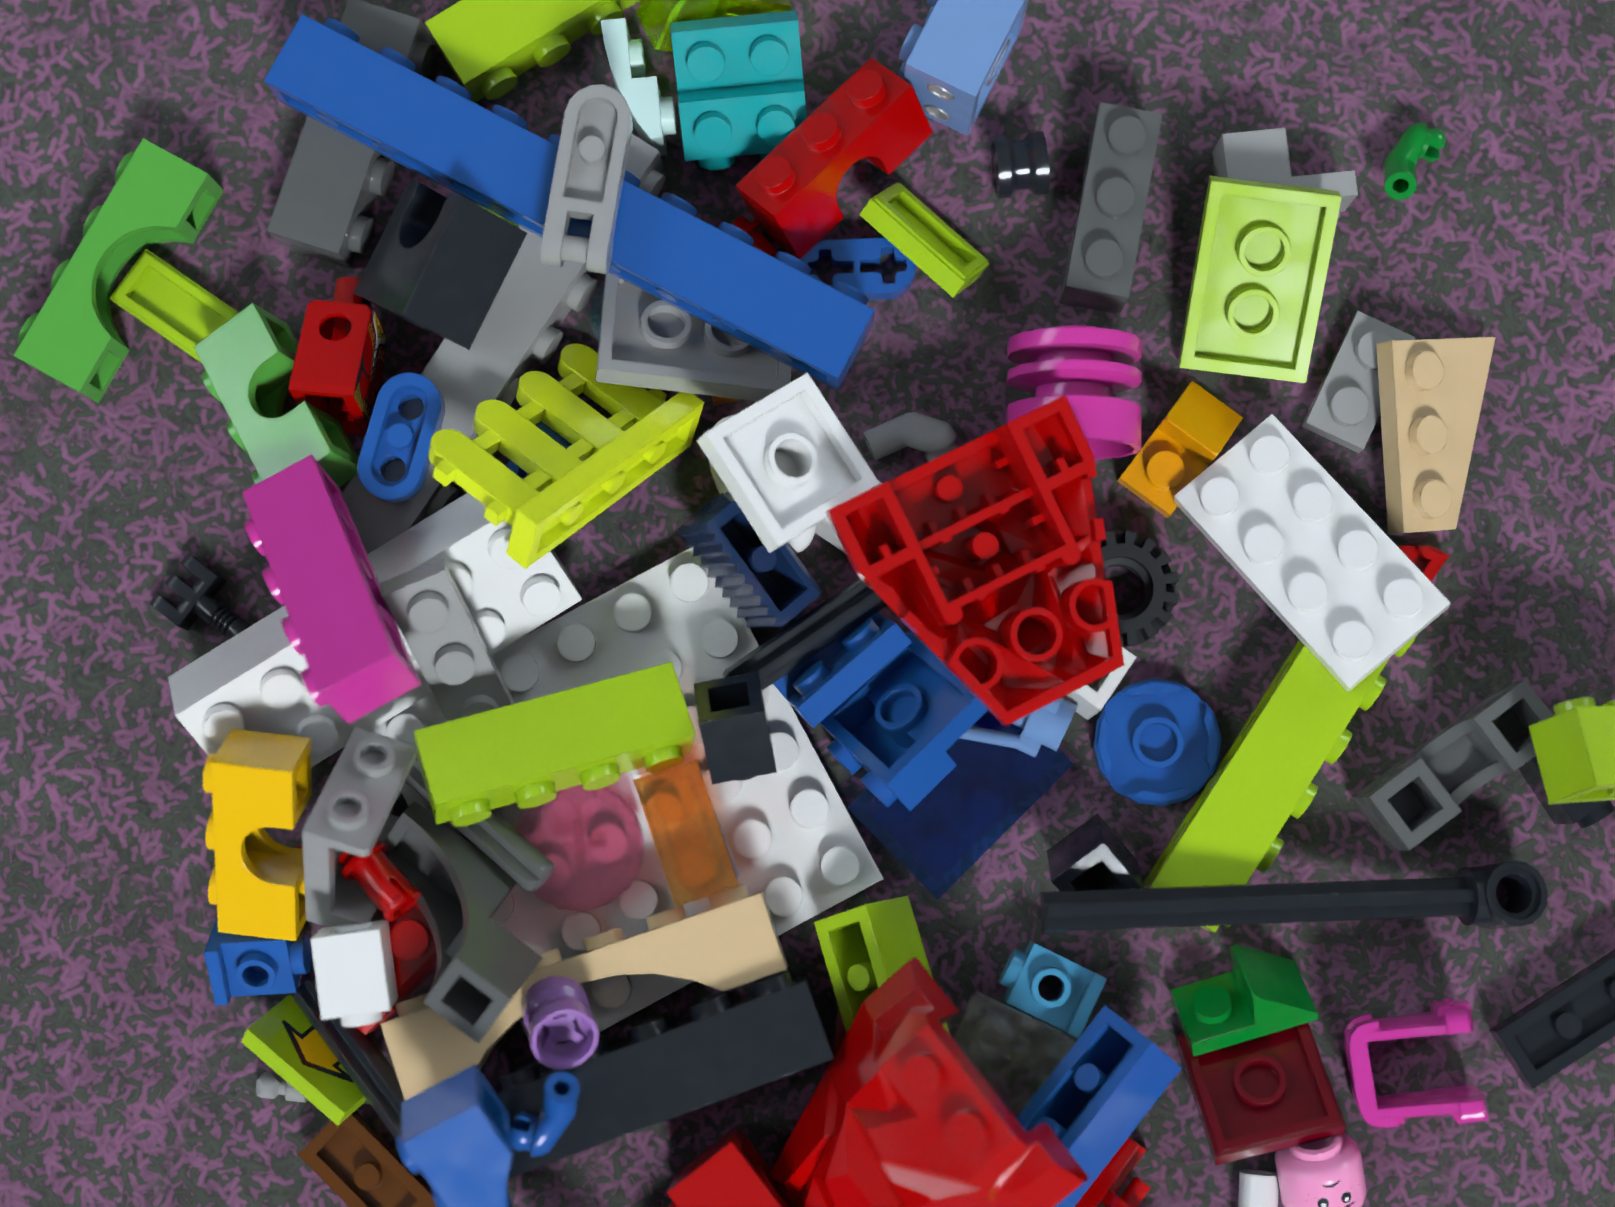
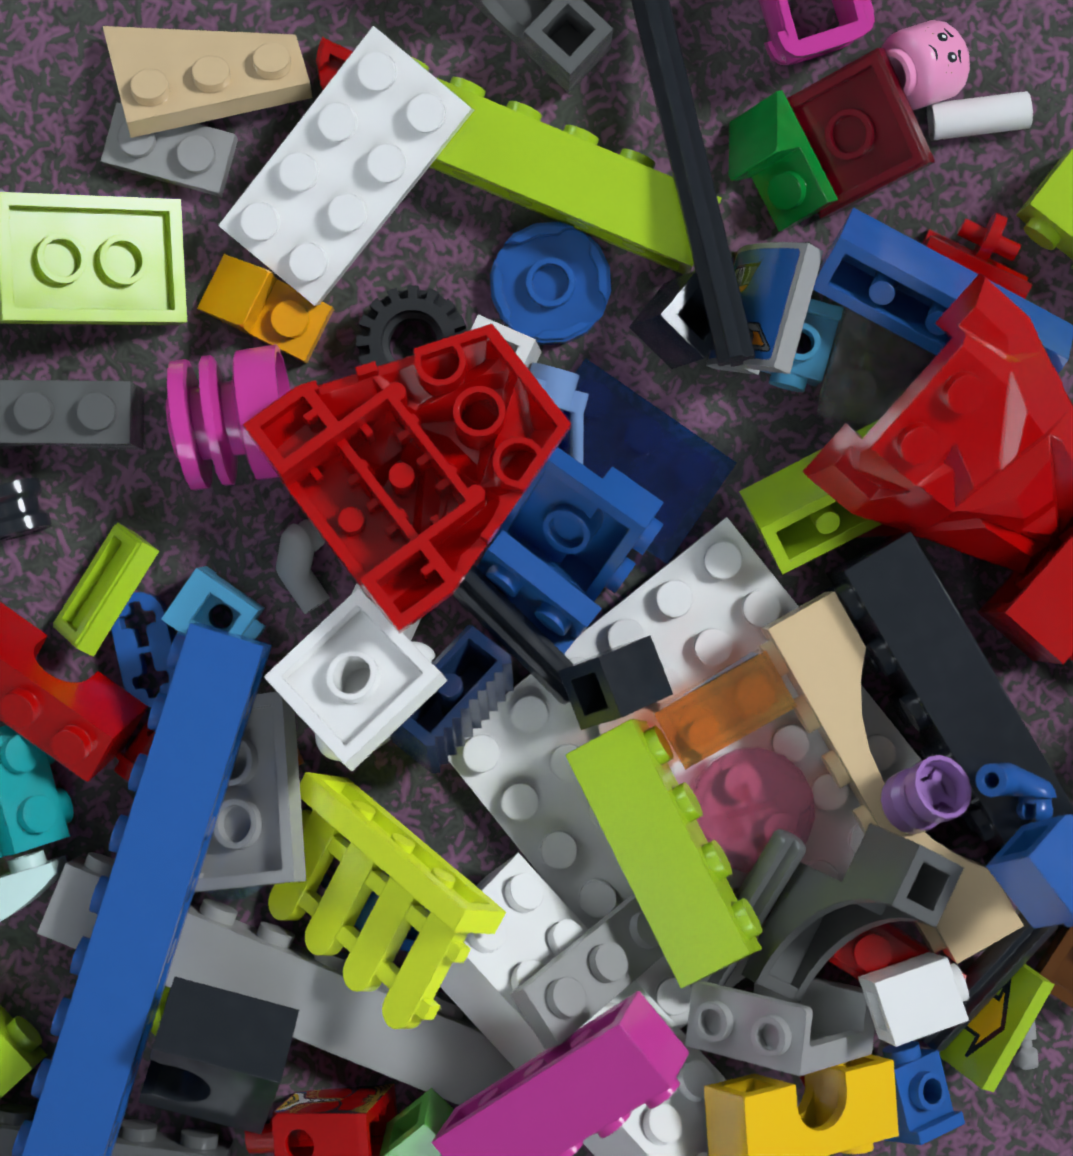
camera: 105 degrees left, 5 degrees up
(380, 881) = (825, 988): red pin -> none
(396, 438) = (396, 1060): blue plate -> none
(588, 178) = (110, 927): light grey plate -> none
(899, 331) = (202, 594): none -> dark azure brick
(1102, 965) = (775, 294): none -> slope

